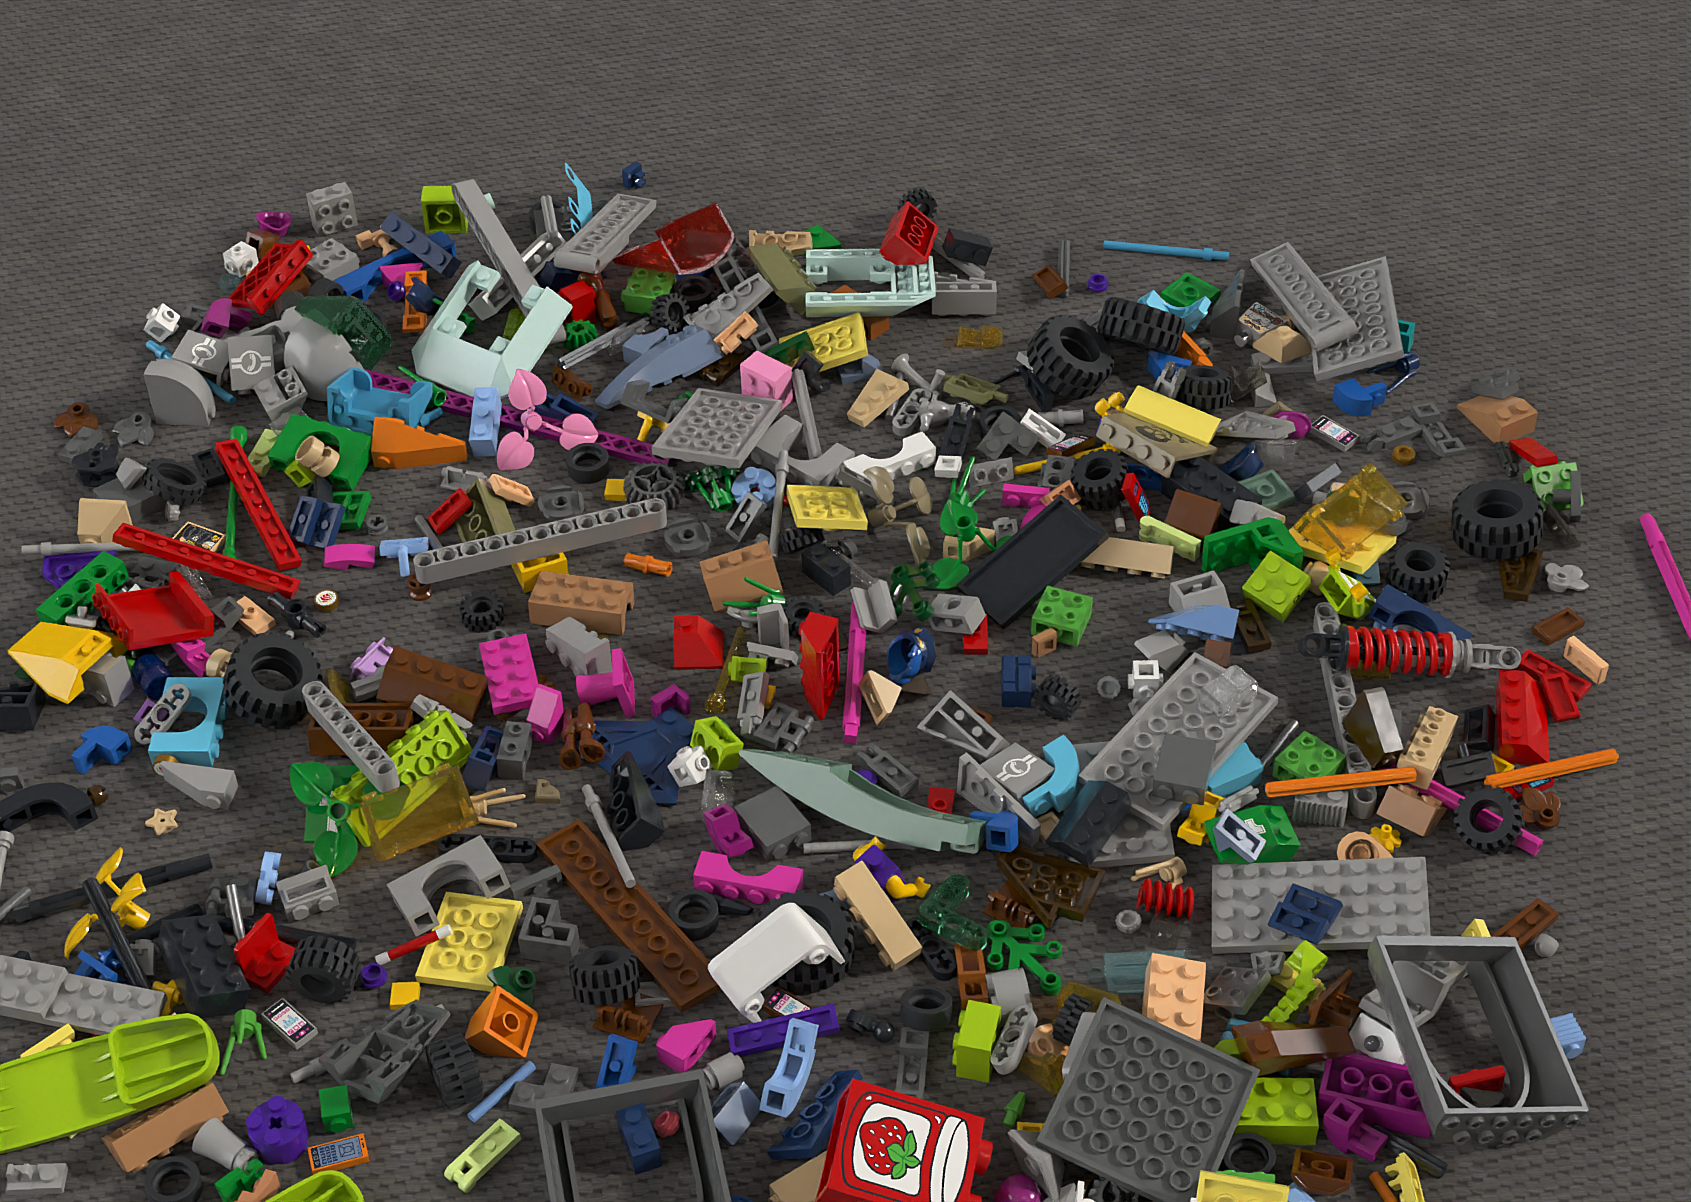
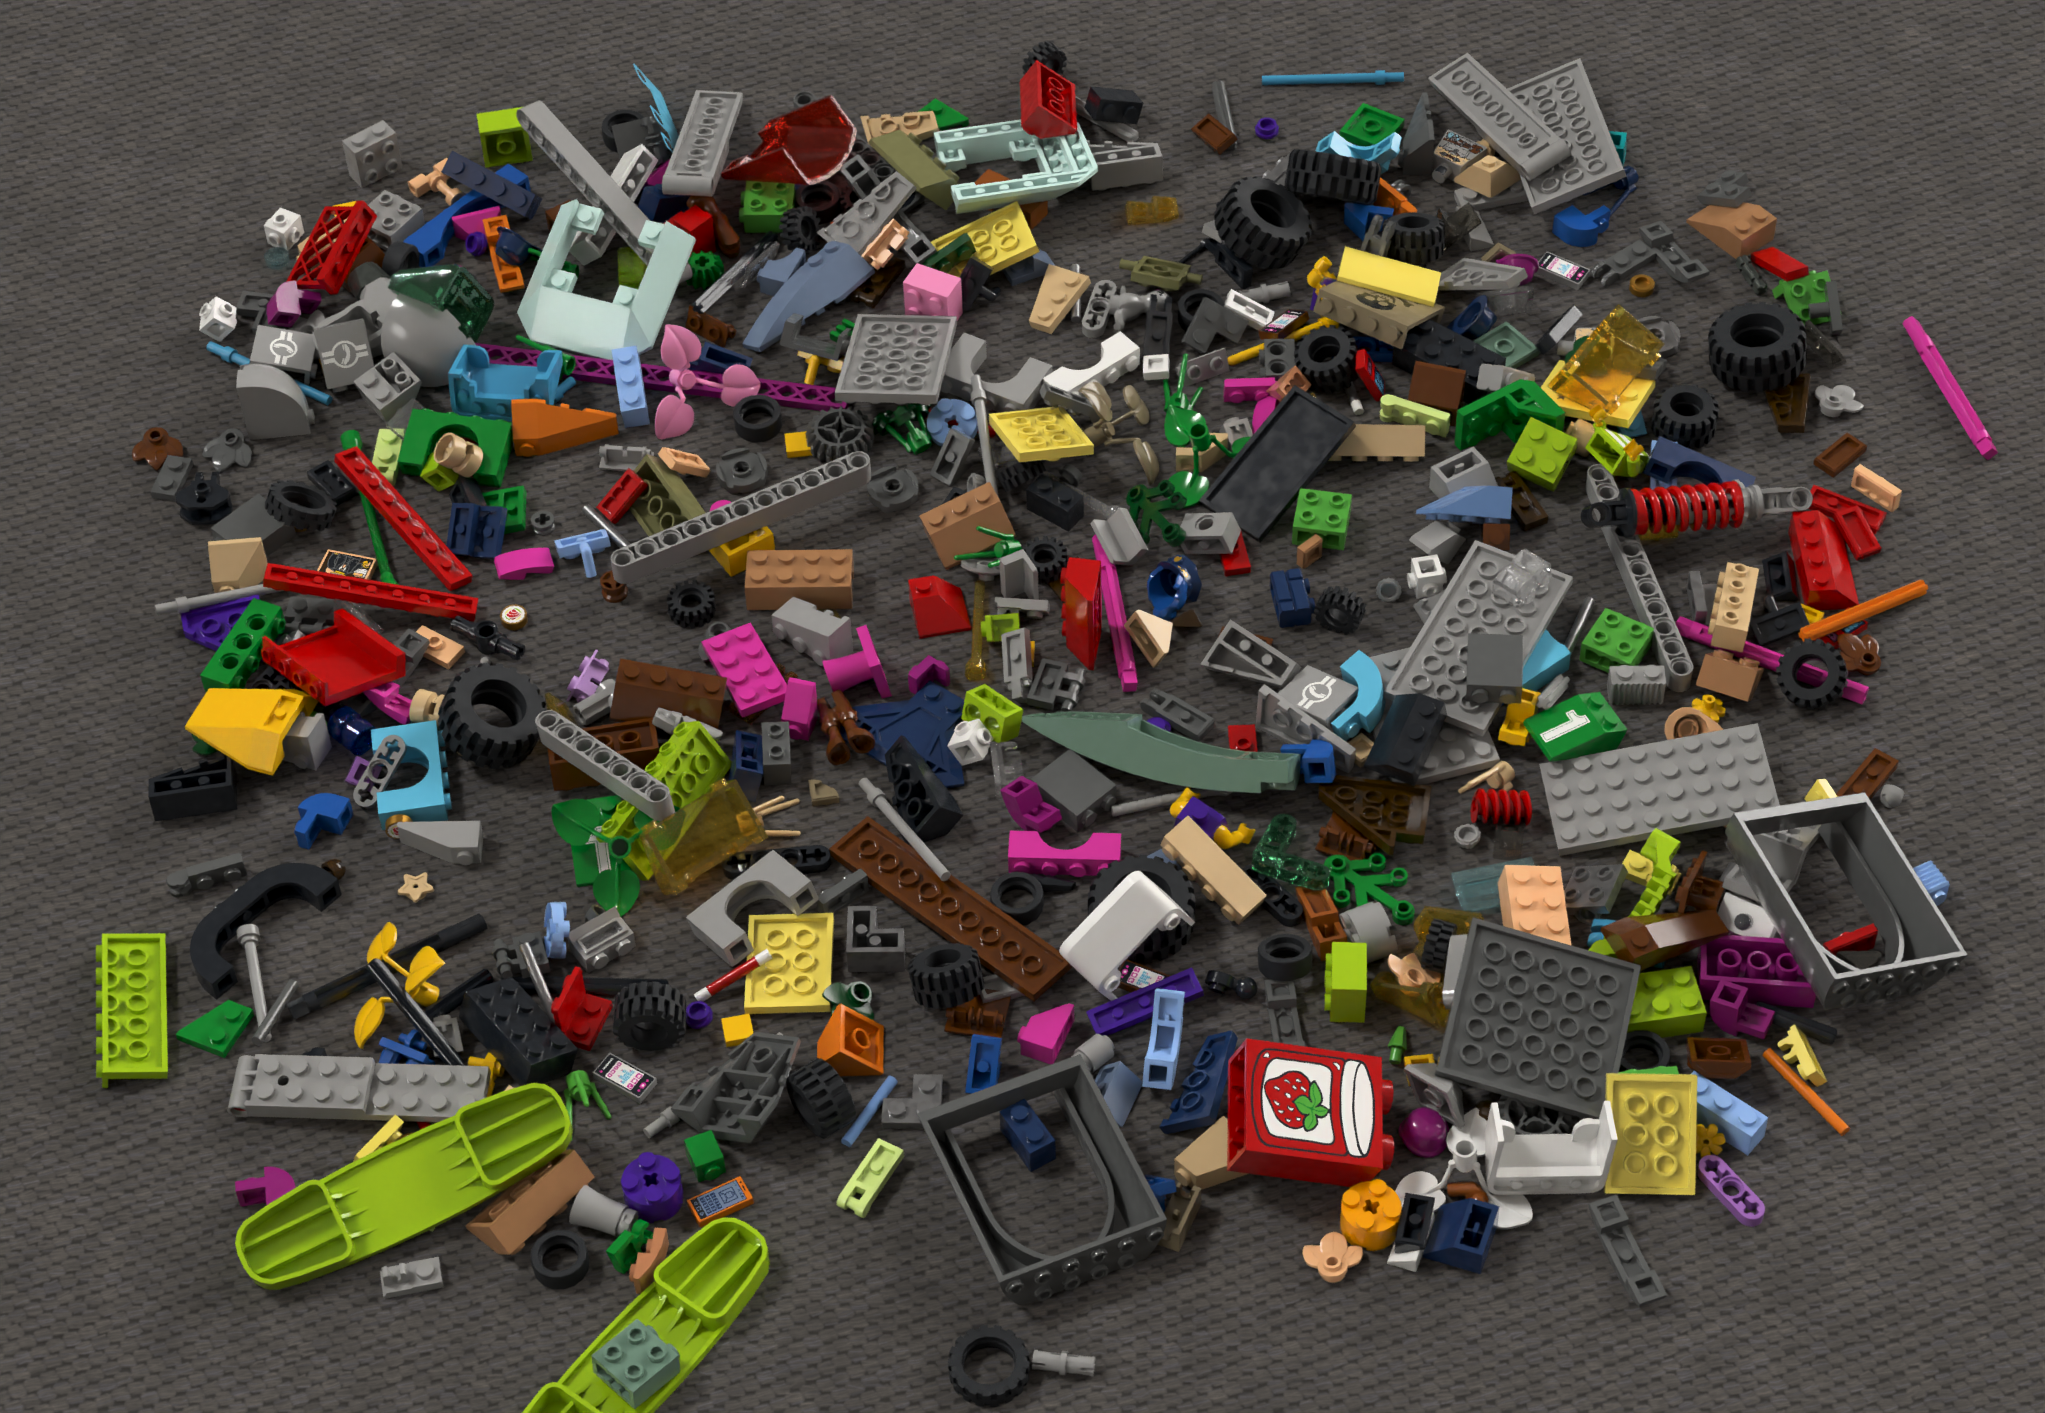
camera: 10 degrees left, 5 degrees up
(81, 619) = (258, 680): light grey piece -> none
(129, 472) = (251, 503): light grey piece -> none
(172, 511) = (305, 540): light grey piece -> none
(261, 241) = (303, 203): reddish brown brick -> none
(274, 222) = (308, 180): magenta helmet -> none
(549, 216) = (633, 132): light grey axle -> none
(633, 175) = (708, 66): dark blue tile -> none
(648, 564) = (858, 525): orange pin -> none
(667, 1123) = (1051, 1115): coral plate -> none
(806, 414) = (987, 330): light grey axle -> none
(901, 364) = (1075, 255): light grey piece -> none
(1008, 1055) = (1389, 984): light grey beam -> none
(1234, 833) = (1565, 730): sand blue slope -> none
(1268, 961) = (1619, 854): light grey piece -> none
(1305, 914) = (1649, 801): dark blue slope -> none
(1340, 782) = (1655, 657): orange axle -> none
(1374, 728) = (1678, 596): dark brown slope -> none

